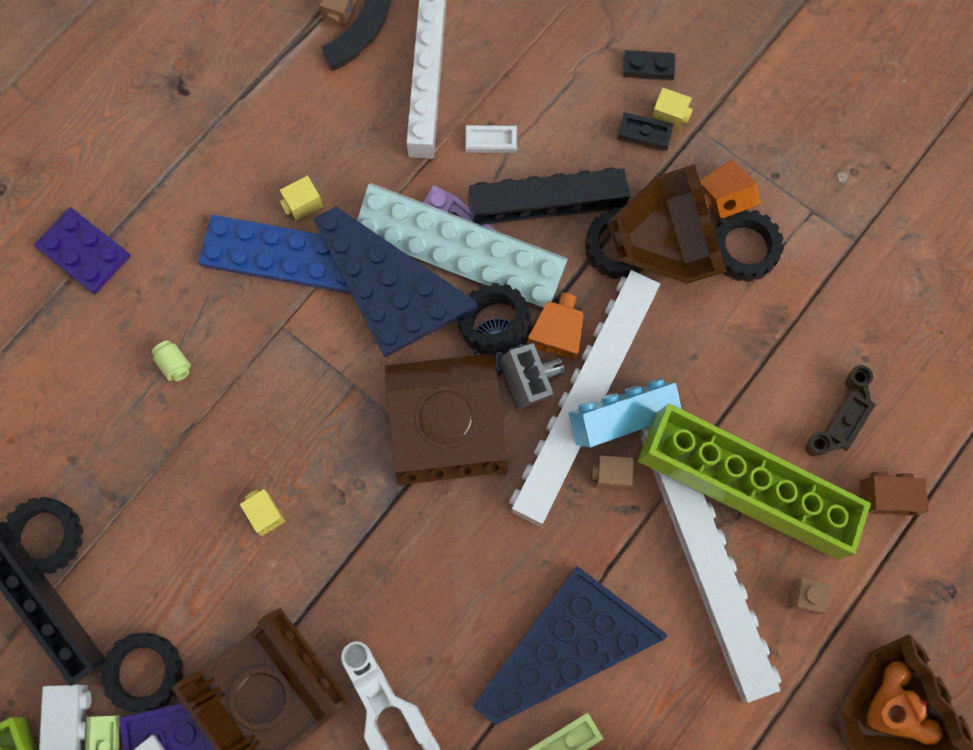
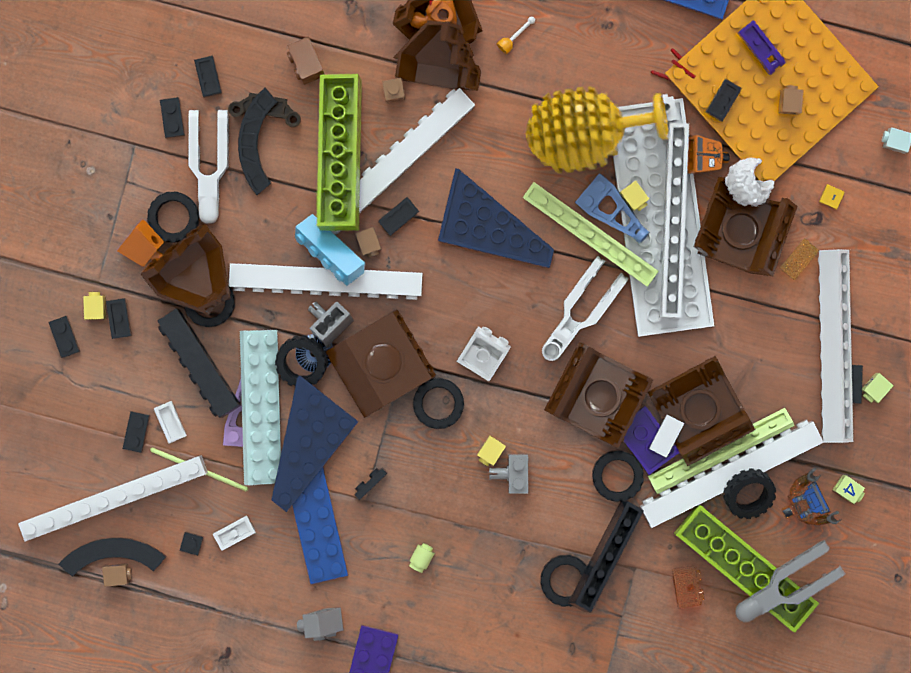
camera: 115 degrees left, 15 degrees up
(152, 202) = (321, 623): none -> light grey brick
(216, 530) = (515, 473): none -> light grey brick
(296, 328) = (363, 488): none -> black plate
(300, 198) = (273, 529): light yellow brick -> none
(319, 153) = (234, 533): none -> white plate
(332, 102) = (191, 543): none -> black plate
(339, 449) = (435, 423): none -> black tyre
(396, 561) = (484, 353): none -> white plate
(403, 161) = (211, 474): none -> yellowish green axle
(497, 96) = (136, 431): none -> black plate
(558, 328) = (287, 317): orange torso -> none
(631, 528) = (398, 216): none -> black plate
(770, 304) = (209, 184): none -> white piece
(812, 377) = (249, 137): none -> black tile
(836, 681) = (439, 58): none -> reddish brown panel
(875, 298) = (172, 117): none -> black plate
(914, 362) = (208, 76): none -> black plate

